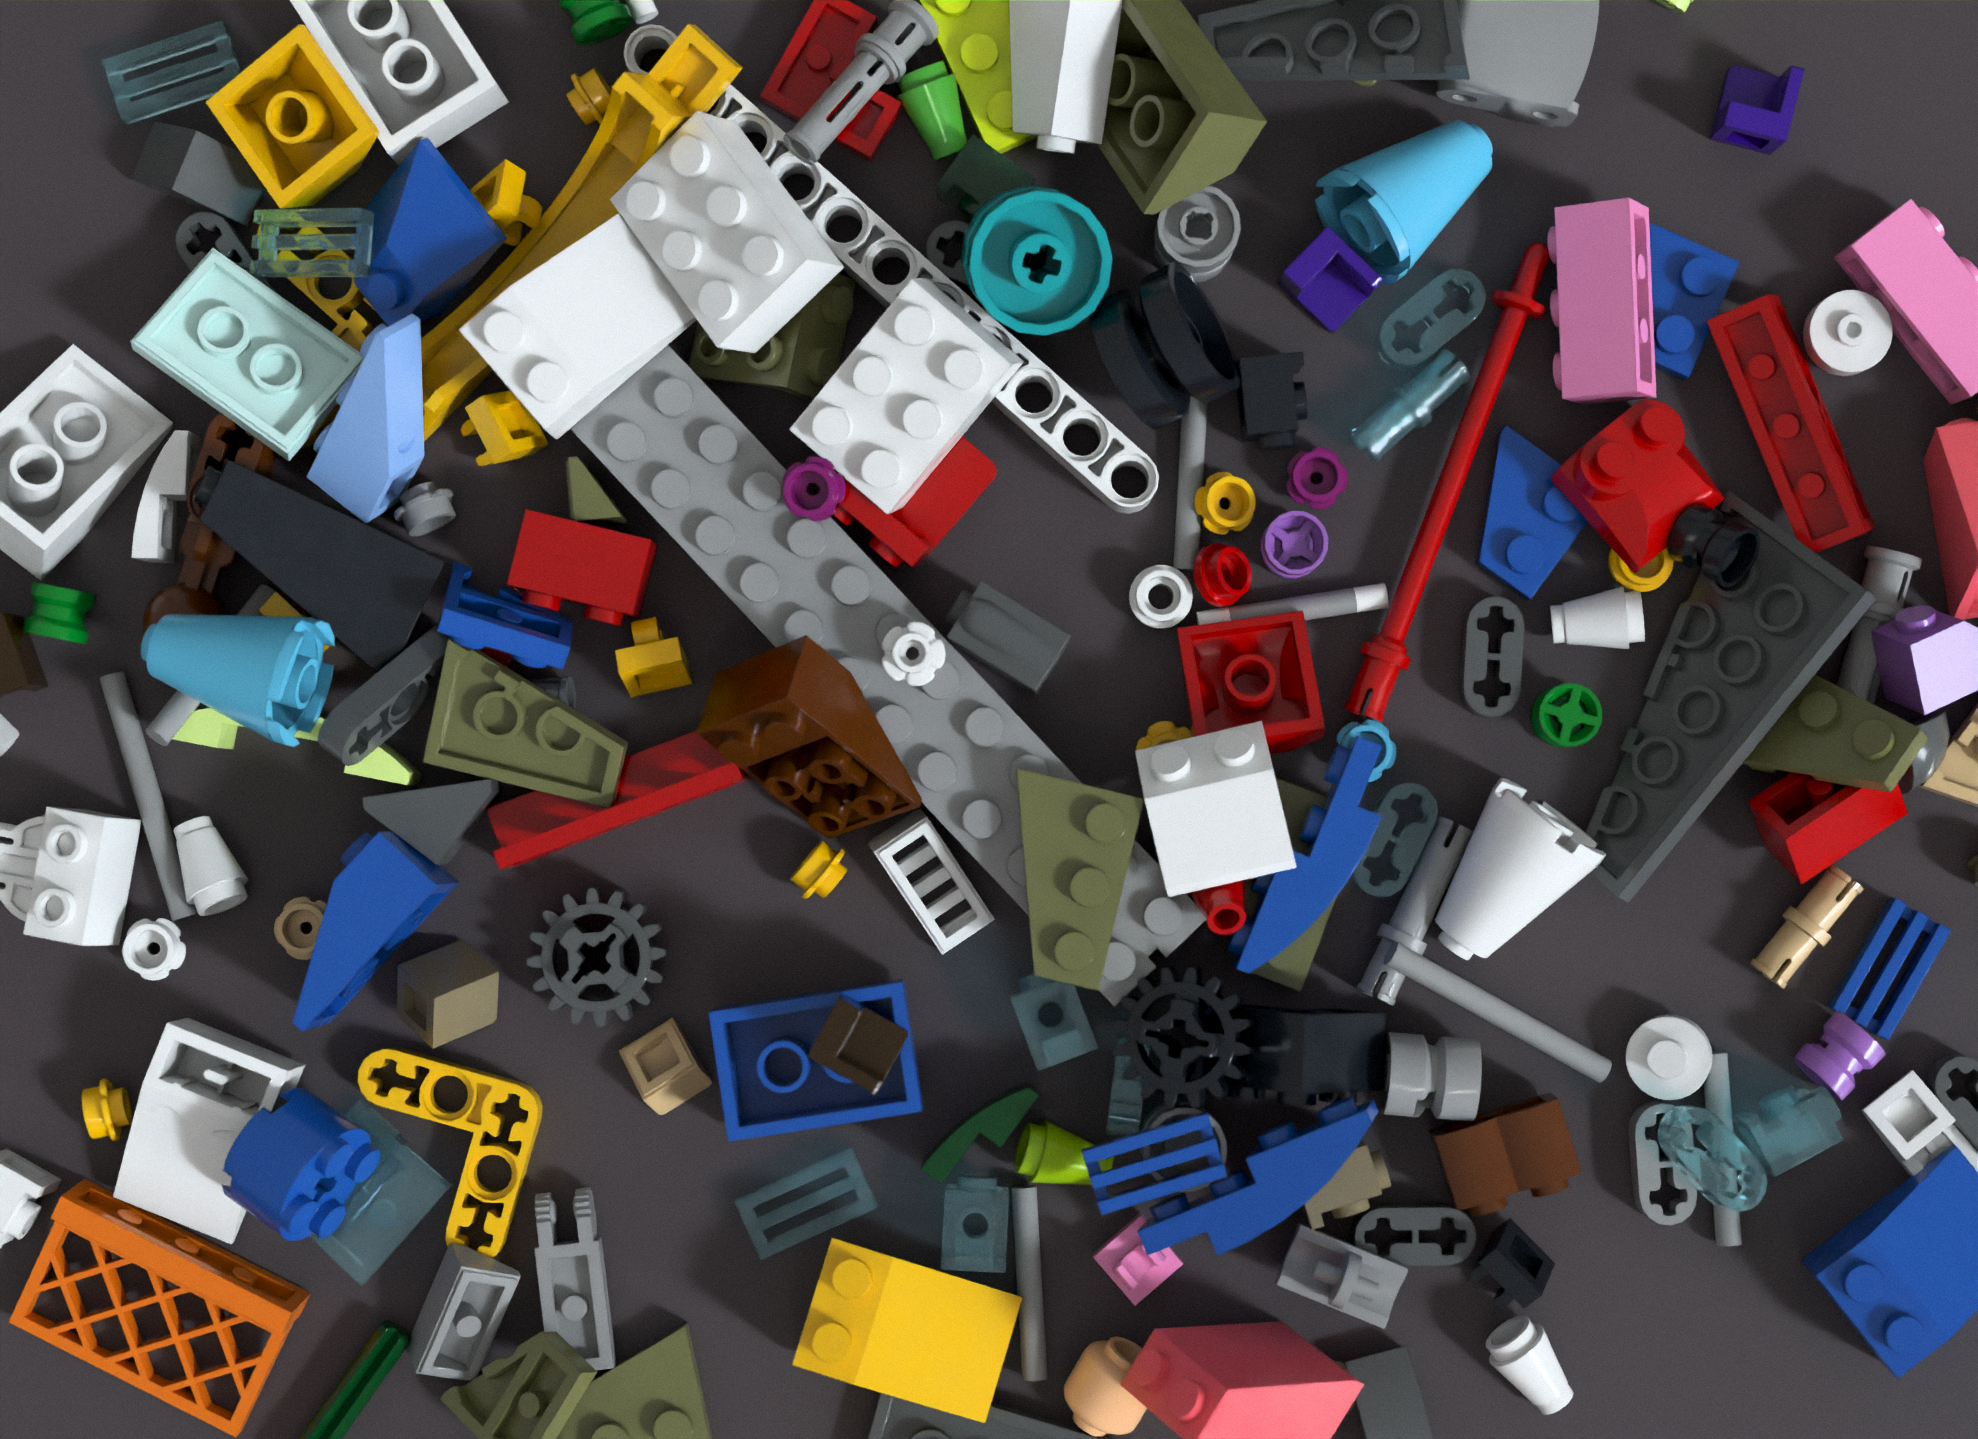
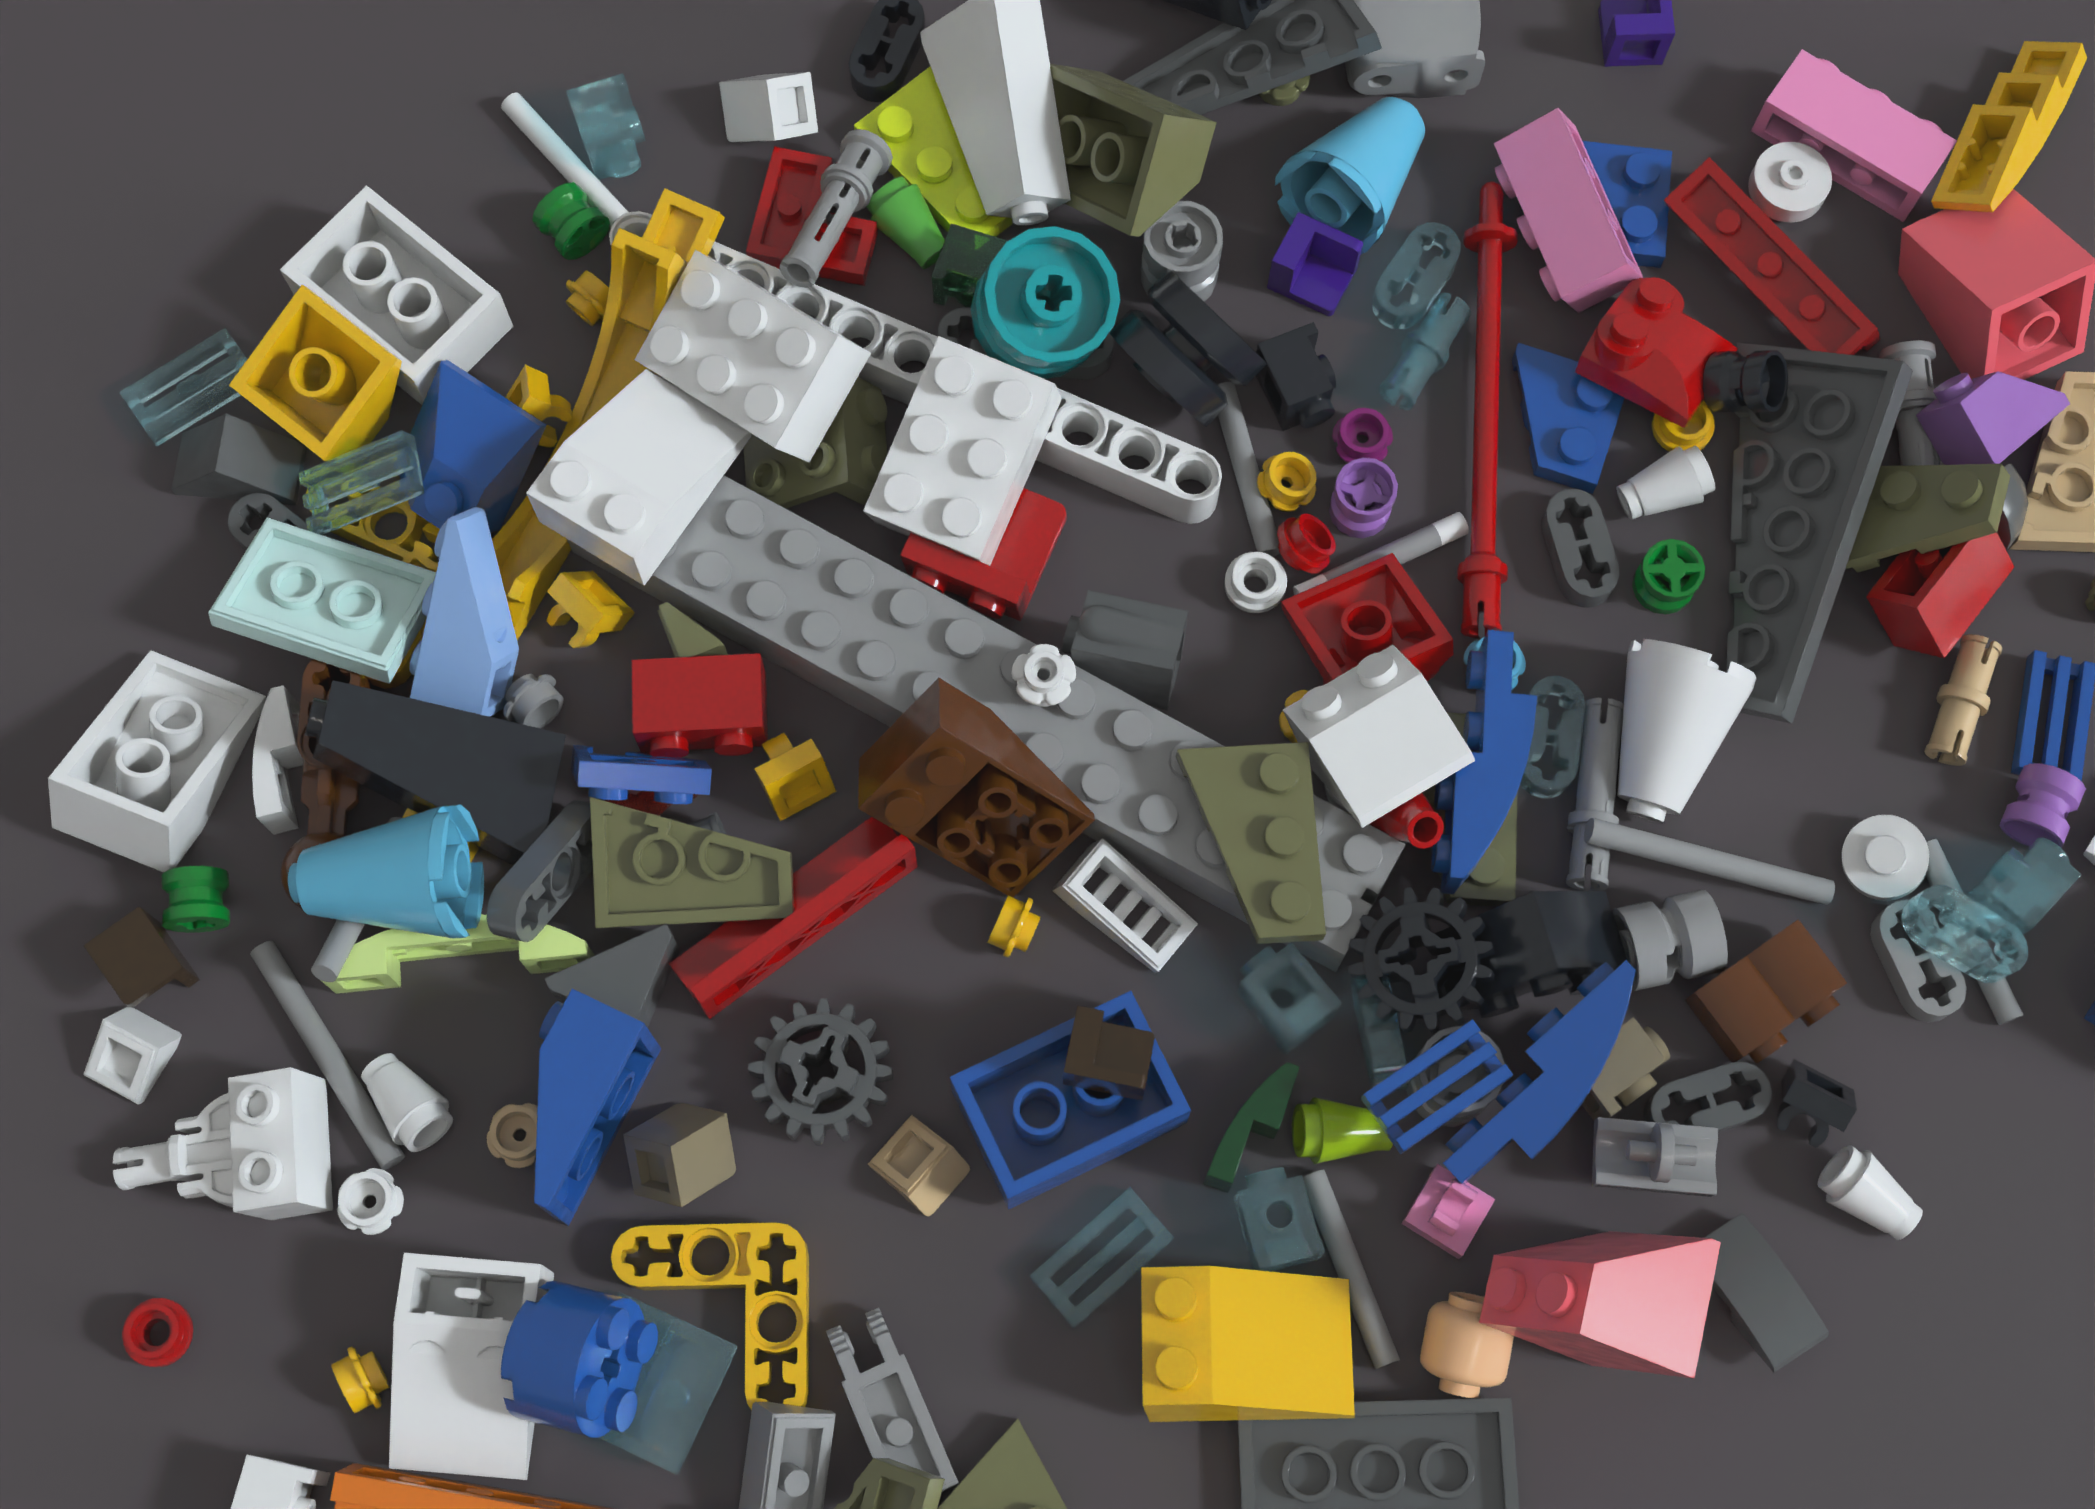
camera: 20 degrees left, 15 degrees down
(796, 484) = (900, 539): magenta plate -> none

